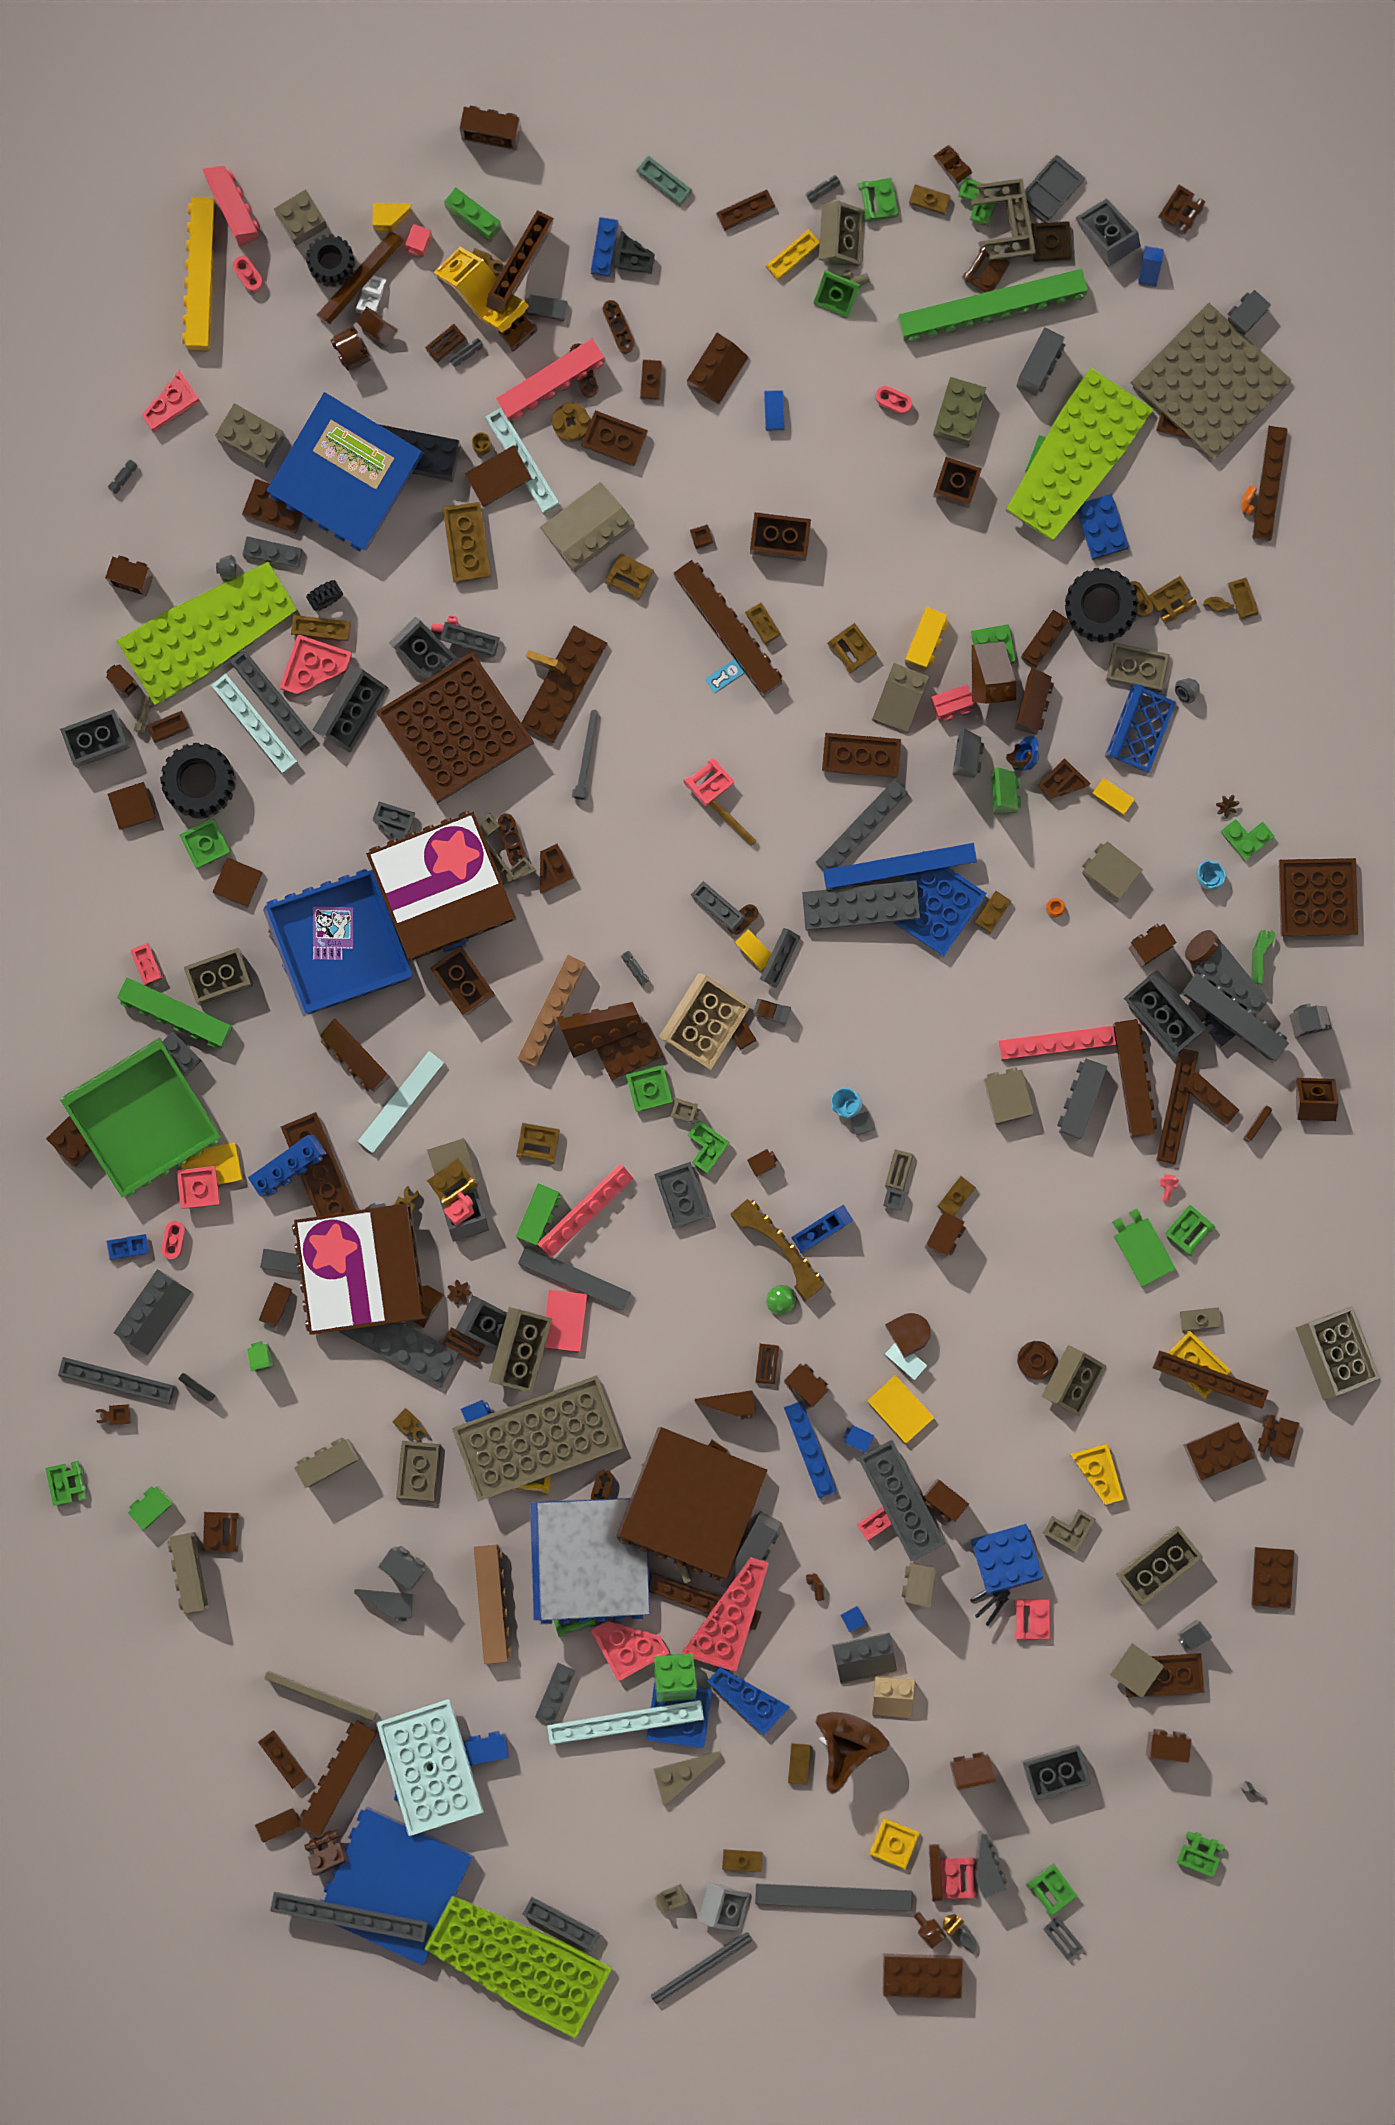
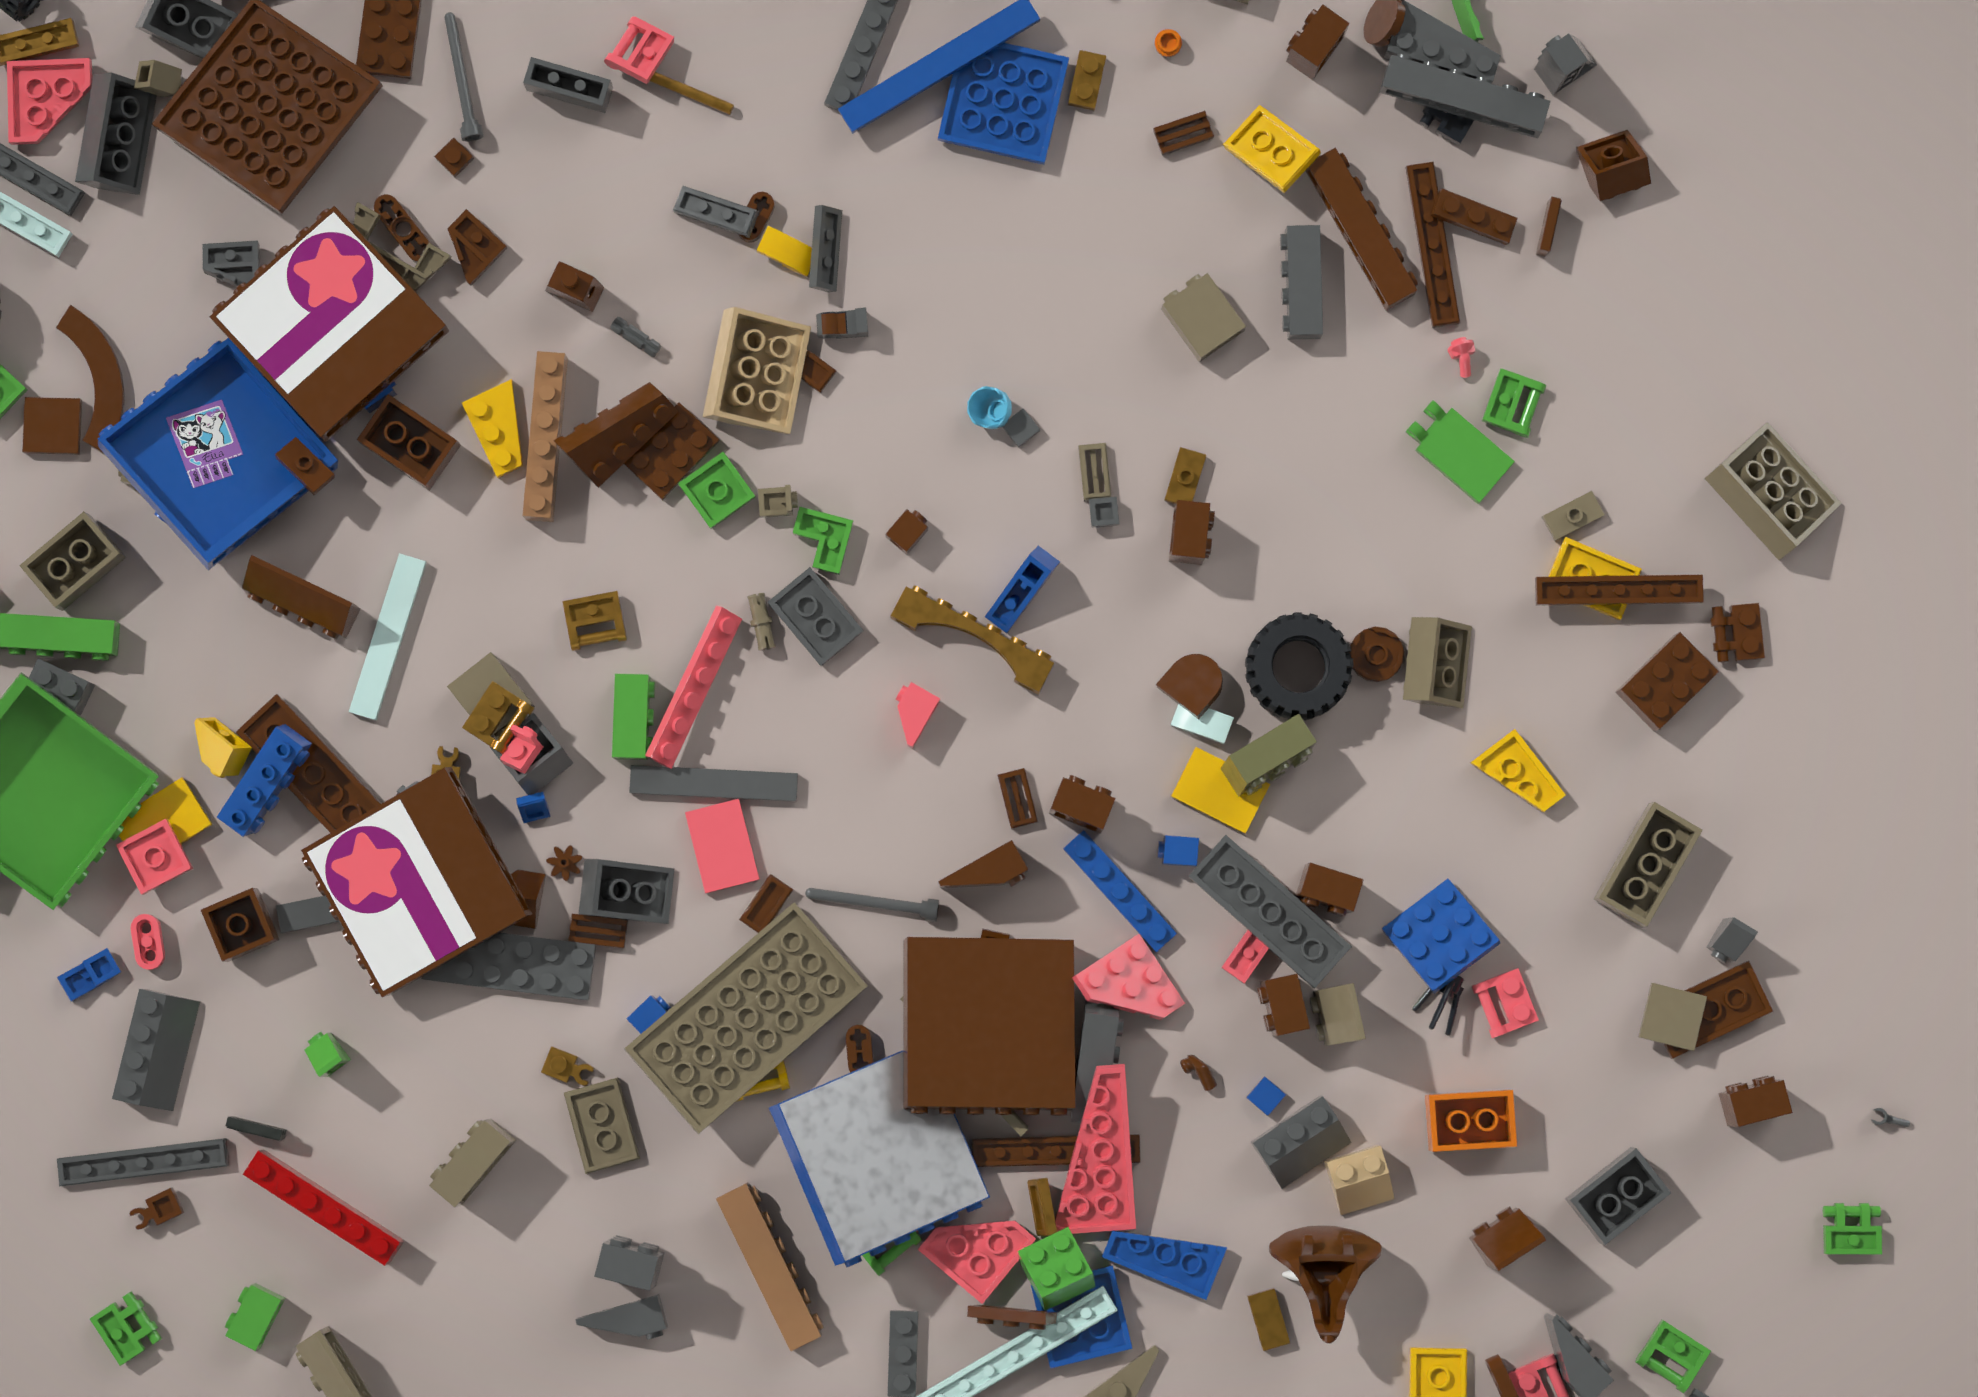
camera: 30 degrees left, 0 degrees up
(214, 1531) = (355, 1315): reddish brown plate -> none
(221, 1454) = (323, 1207): none -> red brick
(236, 1252) = (240, 924): none -> reddish brown brick
(267, 1133) = (220, 747): none -> yellow slope
(275, 1304) = (320, 975): reddish brown slope -> none
(284, 859) = (104, 371): none -> reddish brown tile
(390, 972) = (304, 466): none -> reddish brown plate
(391, 682) = (158, 78): none -> dark tan brick
(452, 1249) = (533, 807): none -> blue tile
(520, 1350) = (677, 907): dark tan brick -> none
(522, 992) = (496, 426): none -> yellow wing
(562, 806) = (454, 157): none -> reddish brown plate
(578, 1369) = (766, 903): none -> reddish brown tile
(608, 920) = (574, 286): none -> reddish brown torso
(634, 1697) = (1012, 1316): none -> reddish brown plate
(645, 1185) = (761, 621): none -> dark tan pin
(654, 787) = (568, 85): none -> dark grey brick
(680, 1412) = (926, 909): none -> dark grey piece
(681, 1633) = (1042, 1207): none -> pearl gold tile
(722, 1281) = (915, 710): none -> coral slope
(781, 1299) = (1003, 705): bright green hair -> none
(794, 1510) = (1130, 981): none -> coral plate
(861, 905) = (907, 137): dark grey plate -> none
(887, 1564) = (1283, 1005): none -> reddish brown brick
(939, 1400) = (1269, 756): none -> olive brick
(979, 1686) = (1470, 1120): none -> orange brick
(1008, 1349) = (1310, 630): none -> black tyre
(1044, 970) = (1179, 123): none -> reddish brown tile
(1057, 1042) = (1238, 223): coral plate -> none
(1073, 1534) = (1514, 870): dark tan plate -> none
(1095, 1003) = (1272, 148): none -> yellow tile
(1165, 1013) = (1369, 126): dark grey slope -> none
(1272, 1577) = (1803, 823): reddish brown plate -> none

